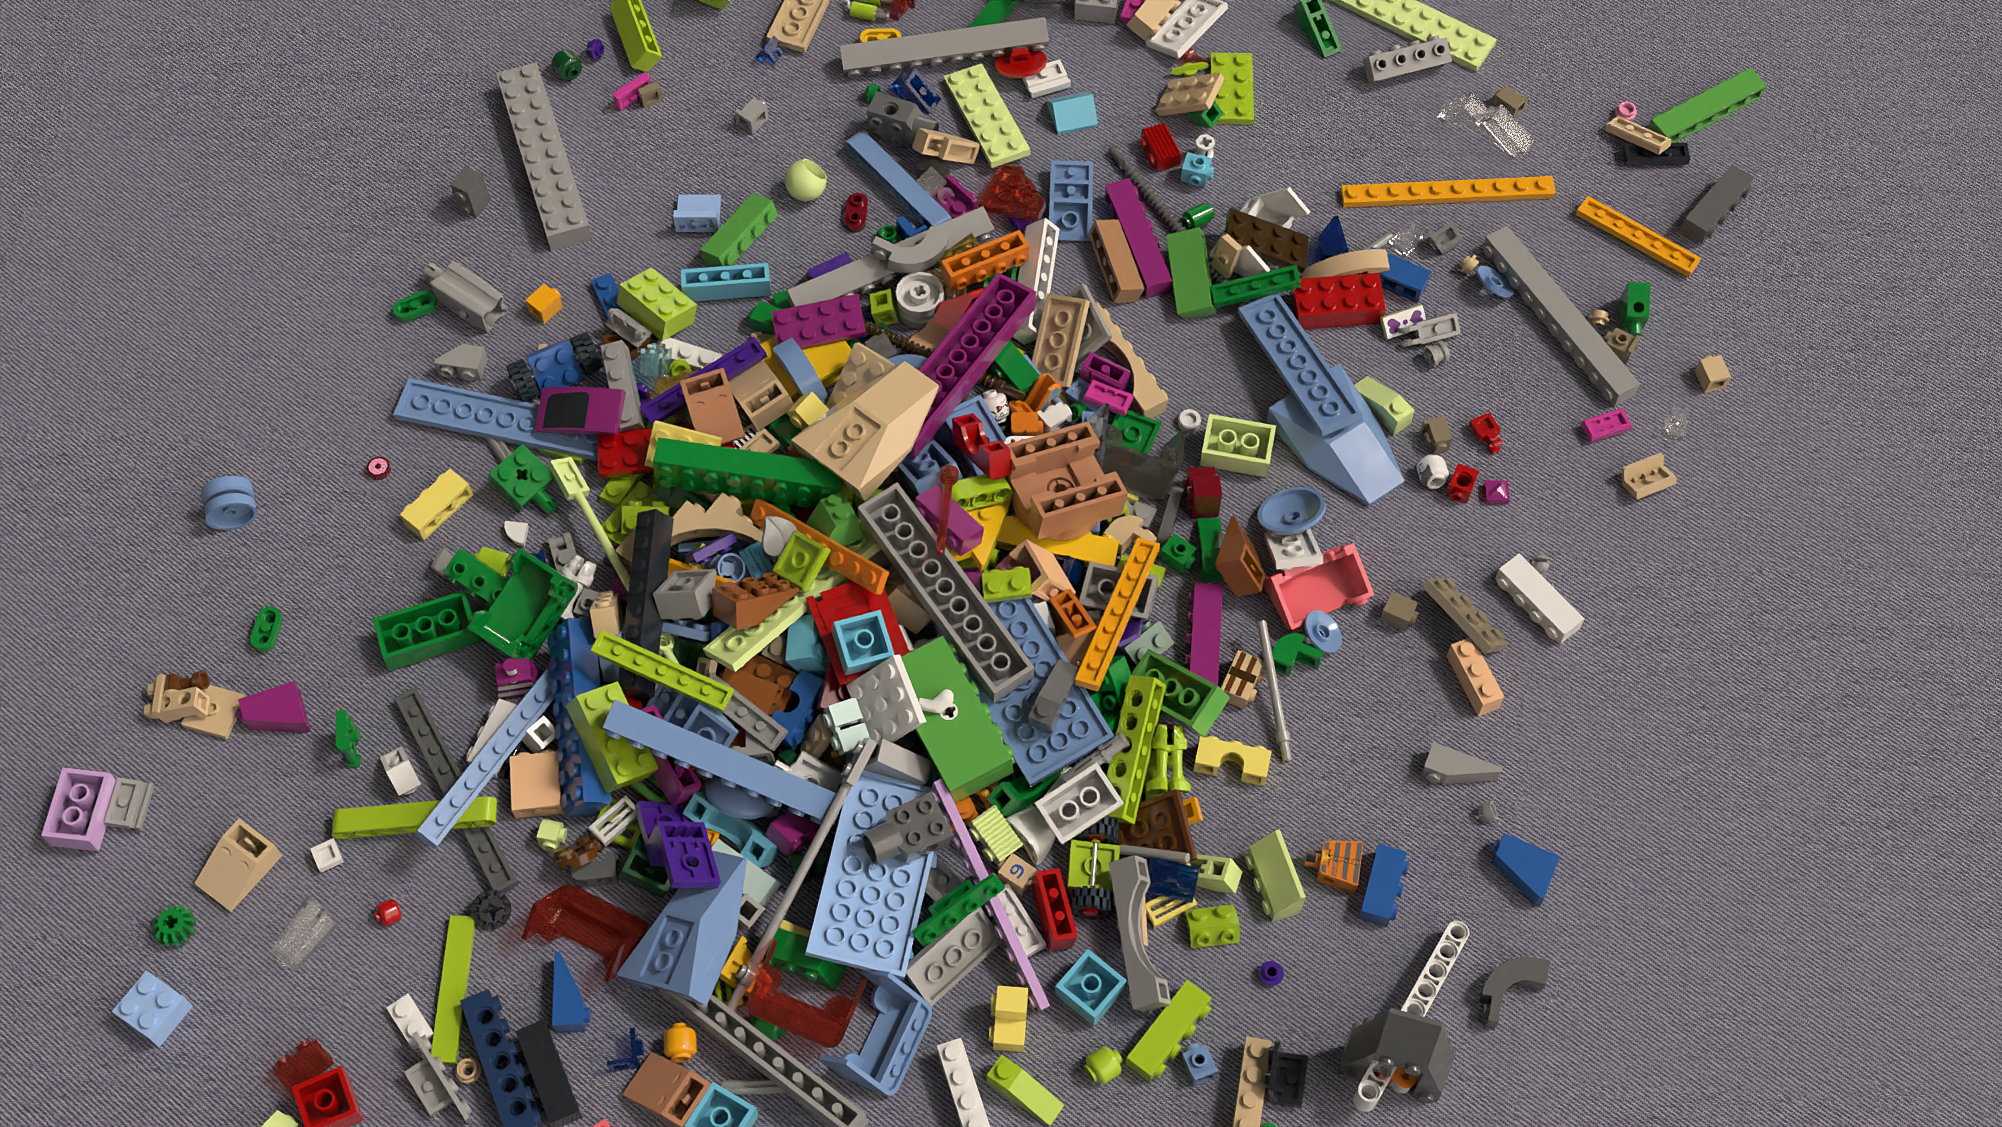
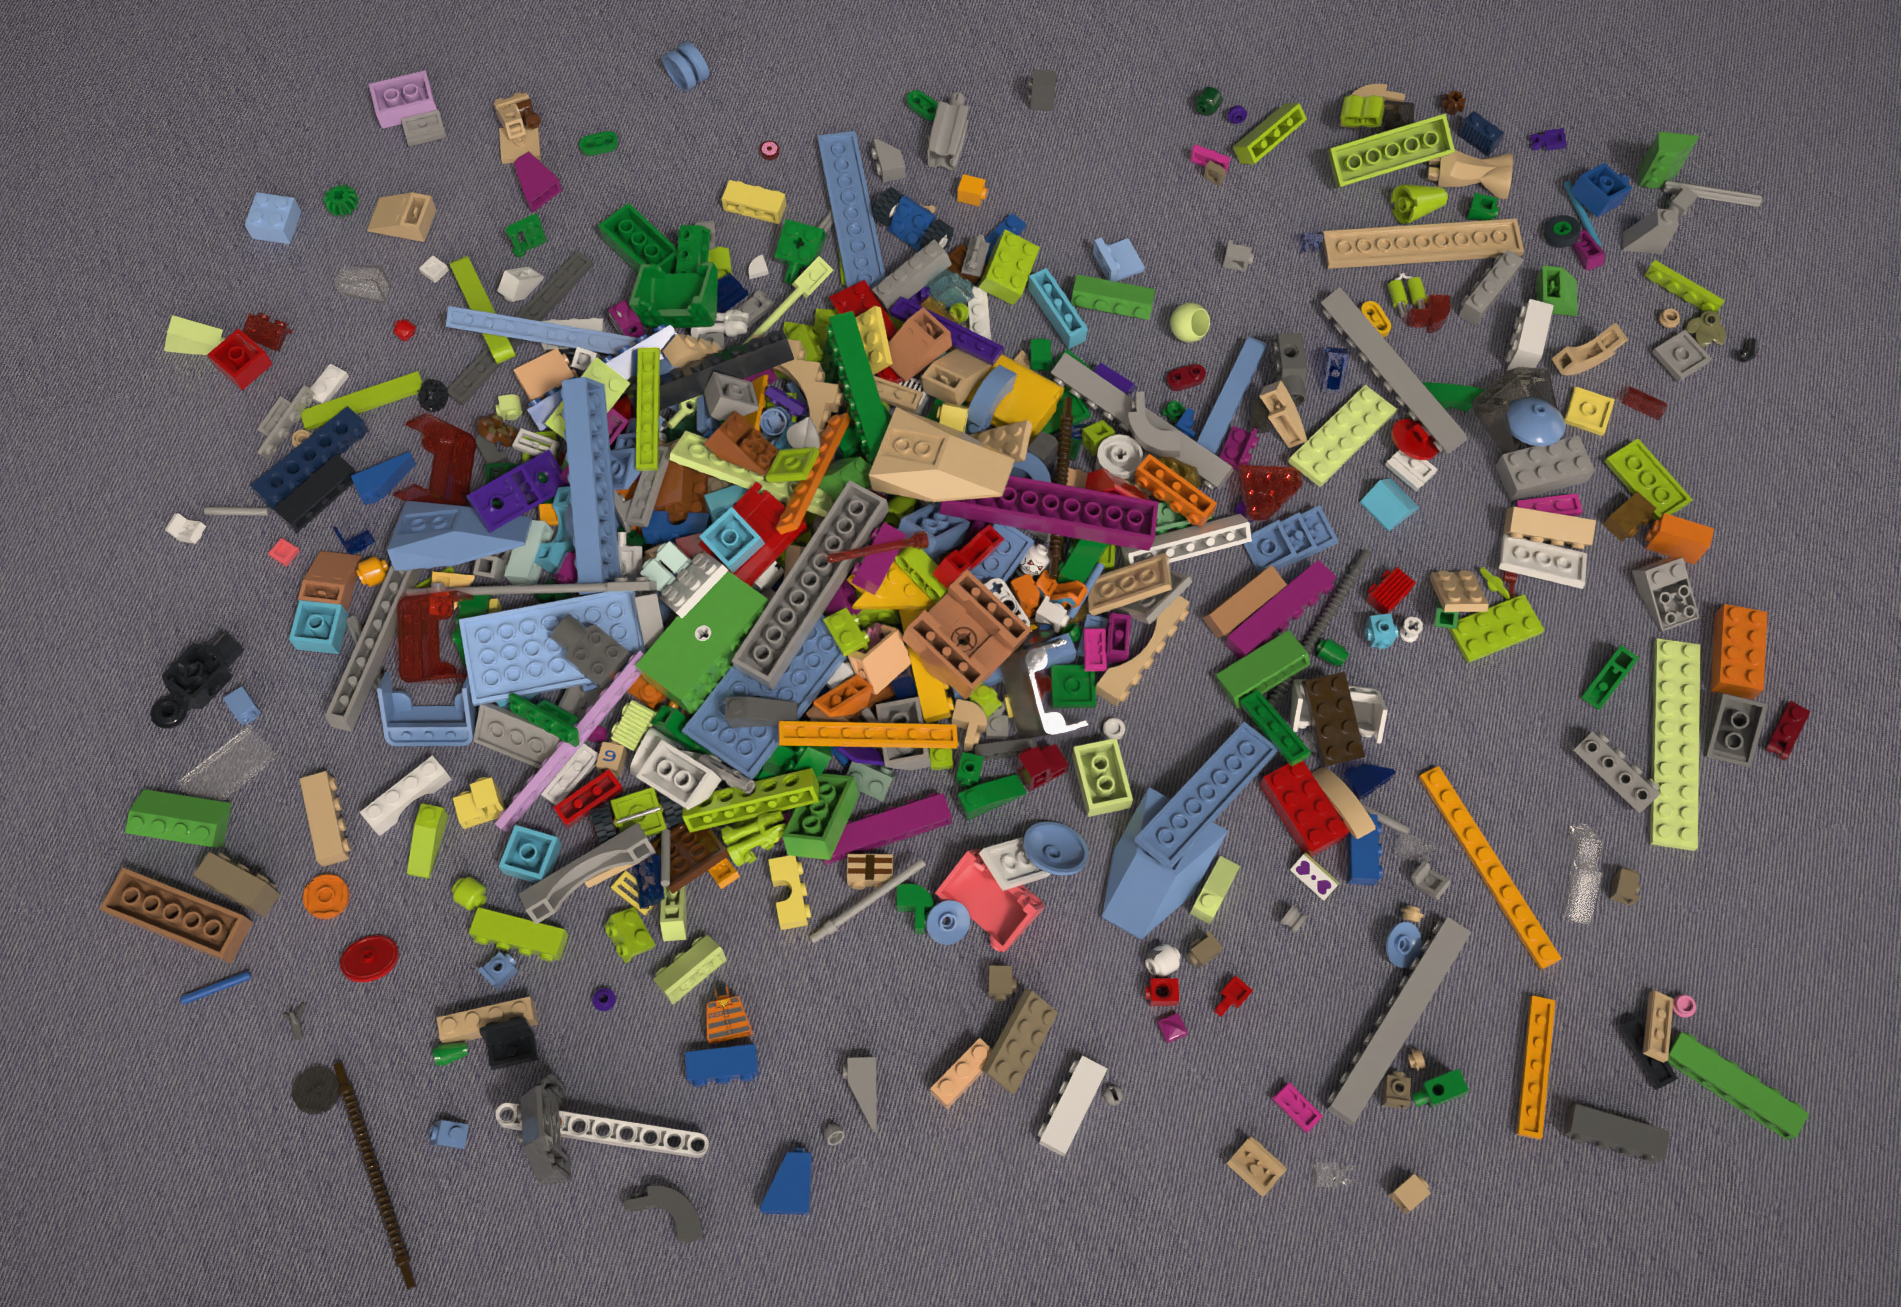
camera: 65 degrees right, 5 degrees up
(544, 157) = (1109, 126): light grey brick -> none
(580, 411) = (874, 256): magenta slope -> none
(820, 322) = (1047, 391): magenta plate -> none
(870, 91) = (1314, 337): green plate -> none
(934, 184) = (1239, 421): clear plate -> none
(939, 703) = (702, 621): white arm -> none
(1226, 256) = (1291, 688): tan plate -> none
(1240, 561) = (981, 820): dark orange slope -> none
(1432, 329) = (1318, 904): light grey hinge -> none

